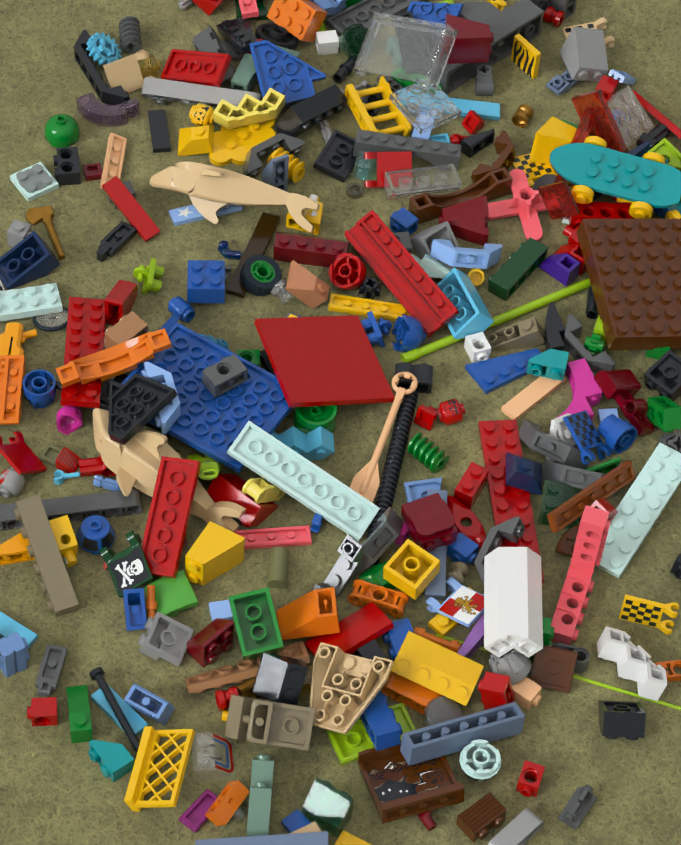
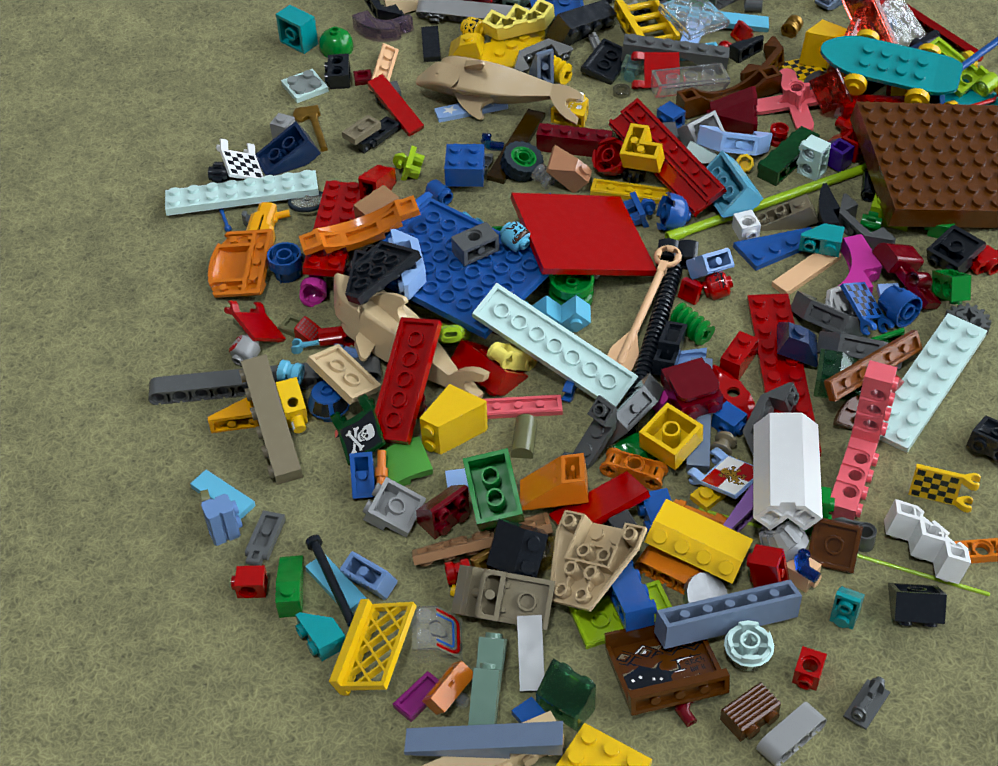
camera: 10 degrees right, 5 degrees down
(21, 115) = (297, 29): none -> teal brick
(59, 507) = (287, 370): none -> medium azure wheel
(99, 239) = (361, 130): none -> dark tan plate
(110, 510) = (343, 373): none -> tan plate
(262, 367) = (515, 236): none -> medium azure head
(295, 771) = (530, 652): none -> light grey tile
(374, 270) = (639, 150): none -> yellow brick
(408, 478) = (669, 346): none -> black slope
(444, 390) = (710, 263): none -> medium blue brick
(509, 242) = (779, 133): none -> red wheel
(525, 689) = (803, 567): none -> clear blue arm
(541, 273) = (813, 157): none -> light aqua brick
(562, 724) = (846, 607): none -> teal slope

